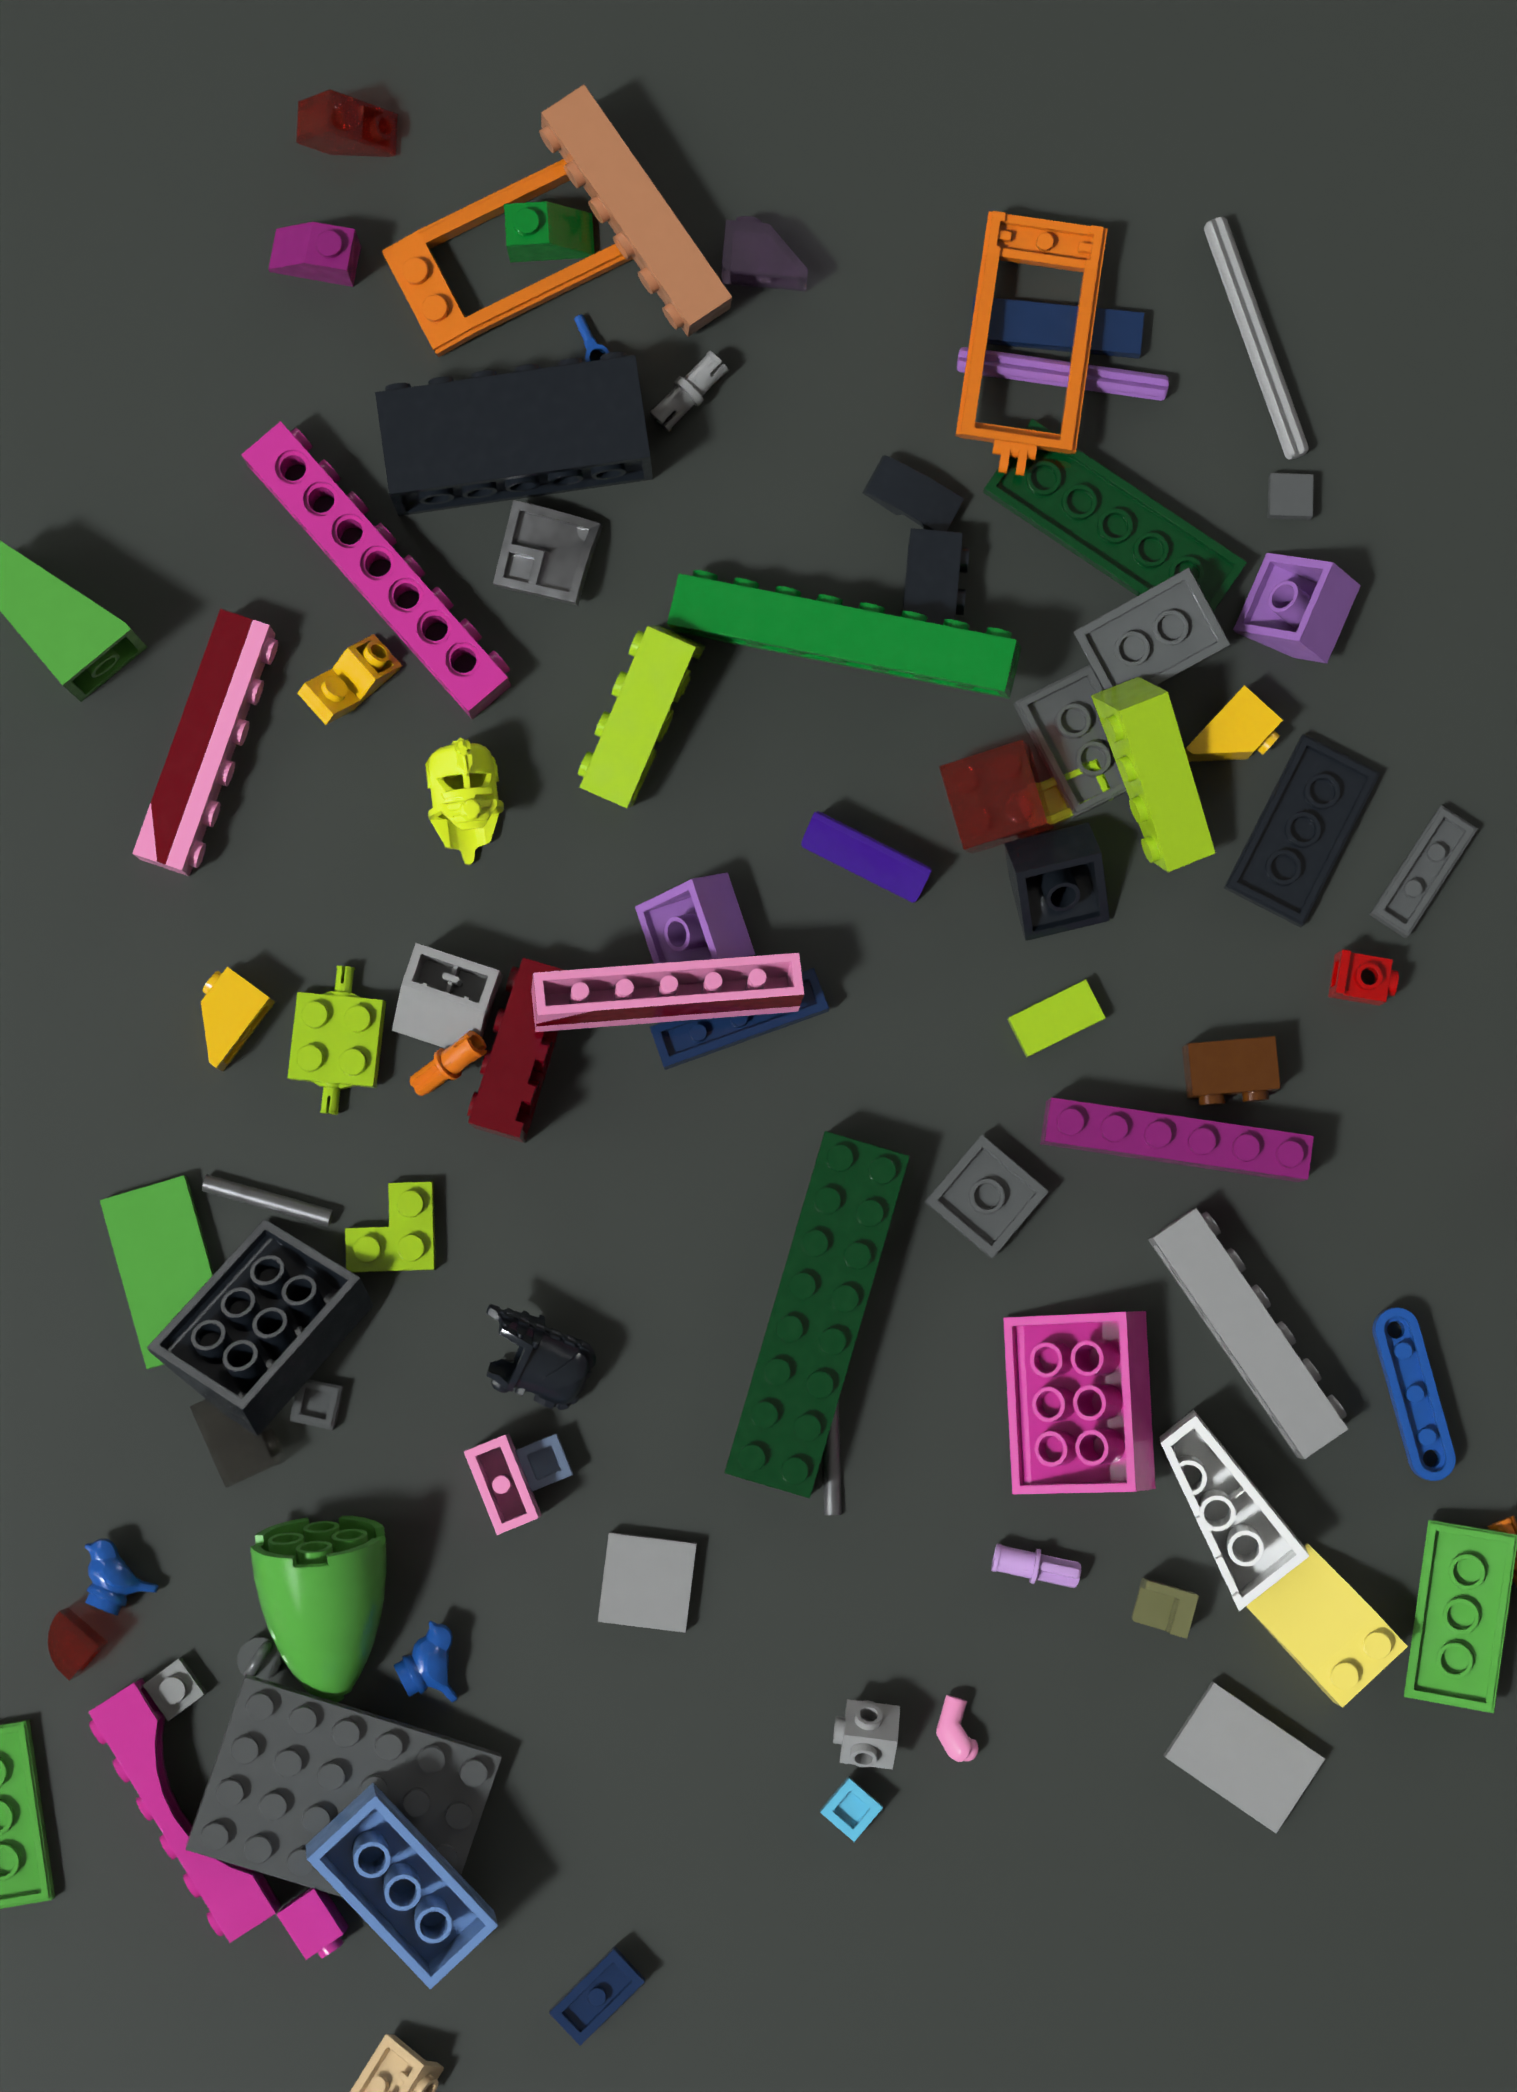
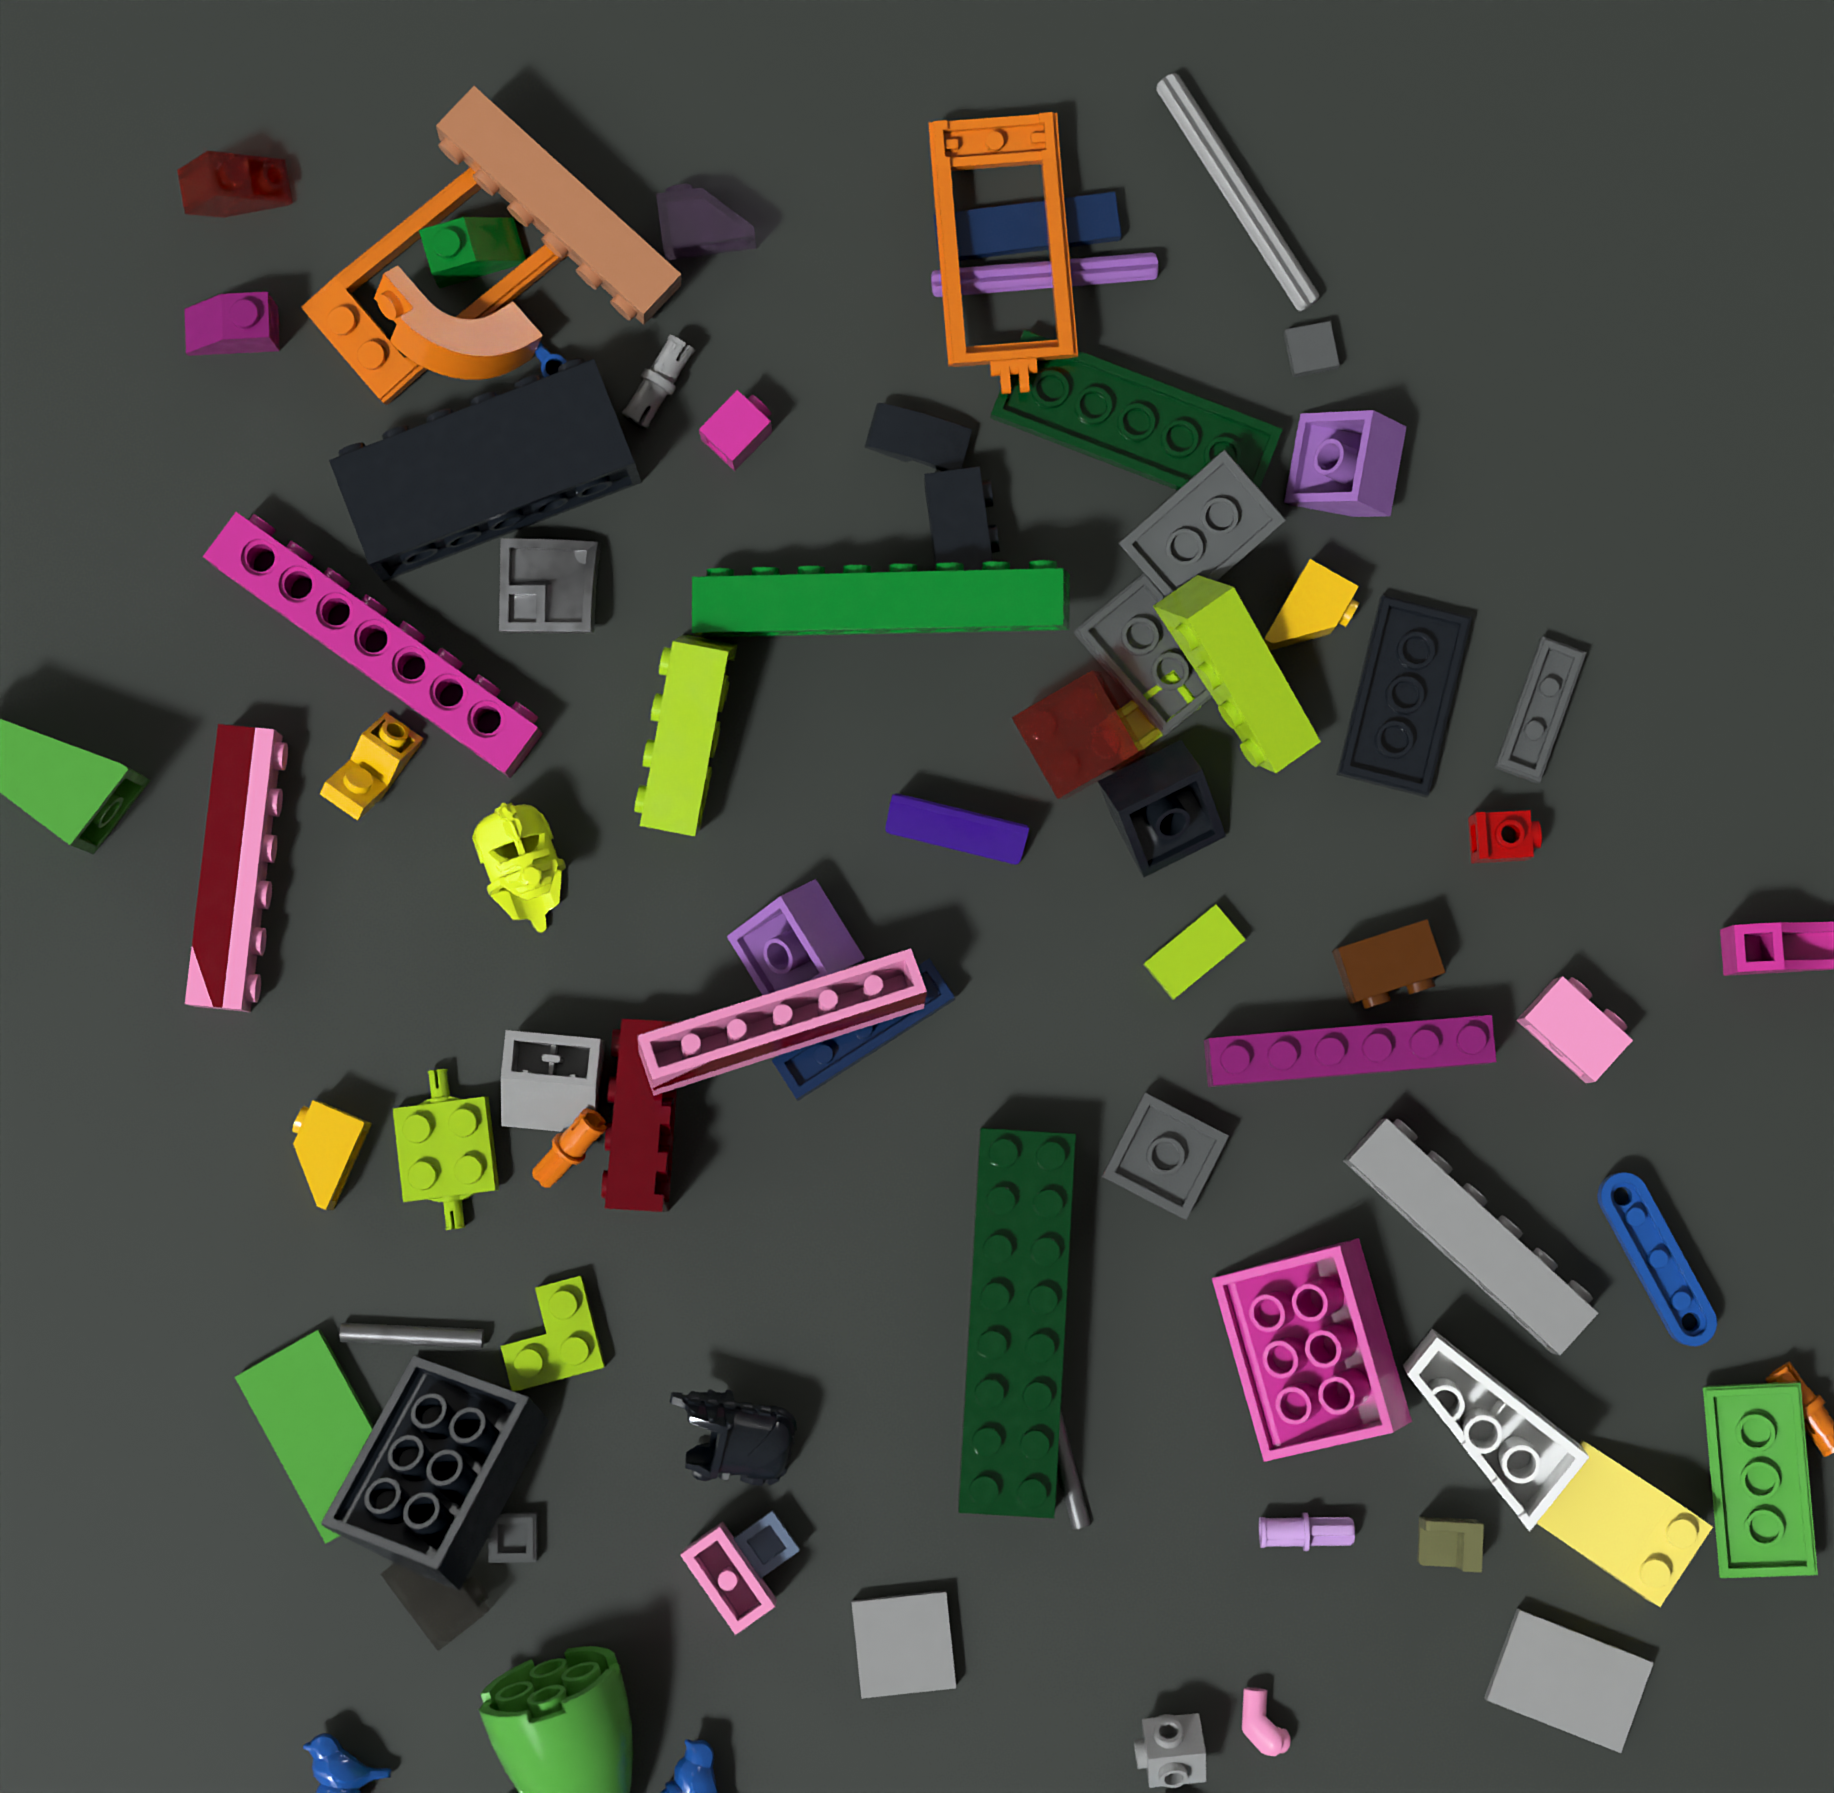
camera: 15 degrees left, 0 degrees up
(509, 314) = (451, 344): none -> orange arch
(750, 450) = (737, 429): none -> dark pink brick
(1388, 1167) = (1576, 1028): none -> bright pink brick

